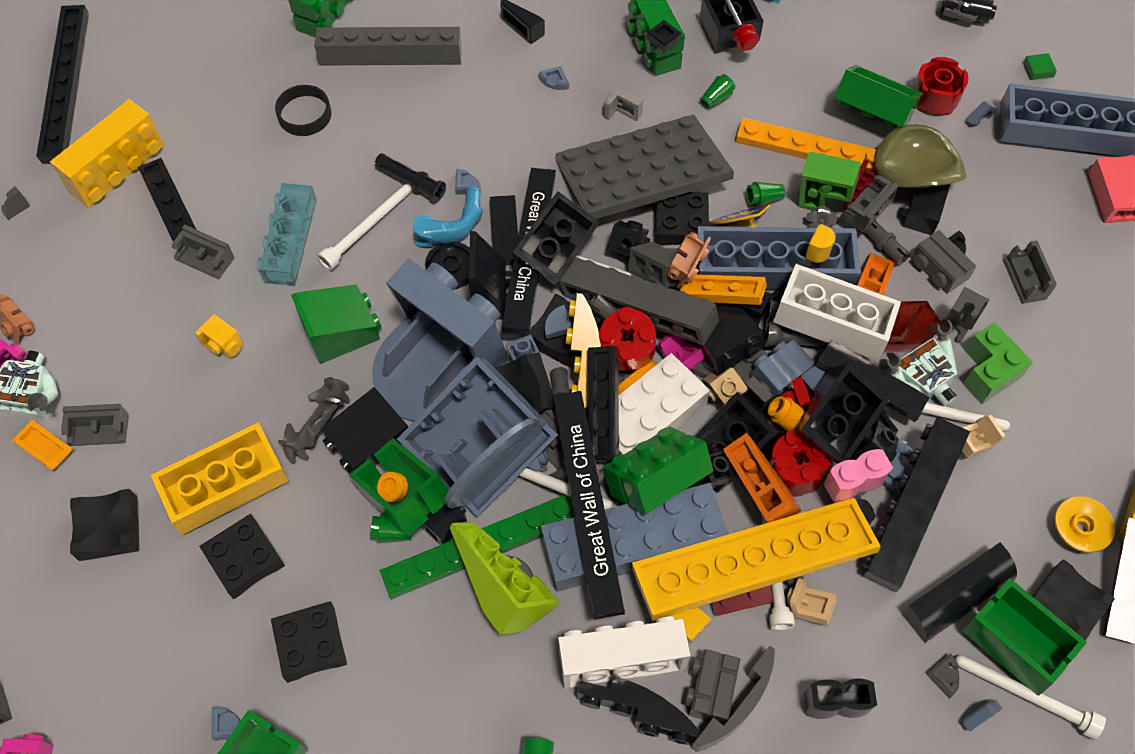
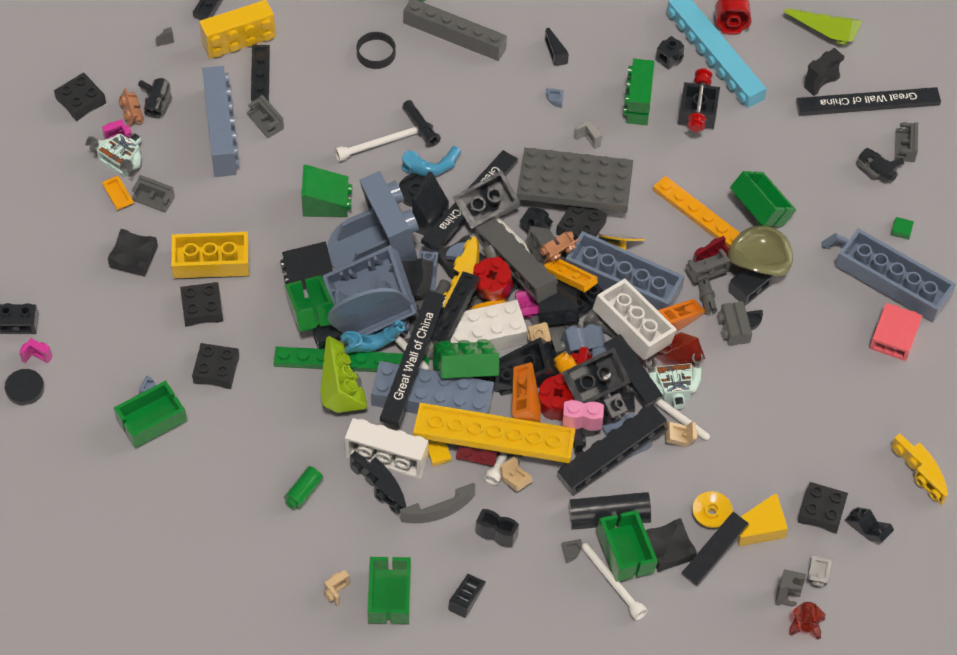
camera: 25 degrees right, 5 degrees down
(40, 287) = (157, 98): none -> black piece
(144, 283) = (220, 121): none -> sand blue brick
(219, 337) = (250, 173): yellow brick -> none
(285, 268) = (323, 127): clear light blue brick -> none
(329, 398) = (296, 236): dark grey piece -> none
(385, 531) = (290, 327): green cone -> none
(392, 486) = (304, 299): light orange tile -> none
(465, 180) = (455, 140): sand blue tile -> none
(504, 226) = (464, 178): black tile -> none
(512, 500) = (369, 343): none -> dark azure piece
(664, 36) = (634, 98): black tile -> none
(713, 687) = (431, 489): dark grey brick -> none
(720, 89) = (659, 151): green cone -> none
(764, 193) = (646, 231): green cone -> none
(820, 244) = (649, 274): yellow brick -> none
(821, 217) = (673, 263): dark grey plant -> none
(827, 178) = (686, 238): bright green brick -> none
(941, 85) = (814, 210): red brick -> none
(966, 311) = (719, 356): dark grey hinge -> none
(982, 714) = (577, 577): sand blue tile -> none
(998, 363) = (725, 400): bright green brick -> none
(1030, 273) = (788, 355): dark grey hinge -> none

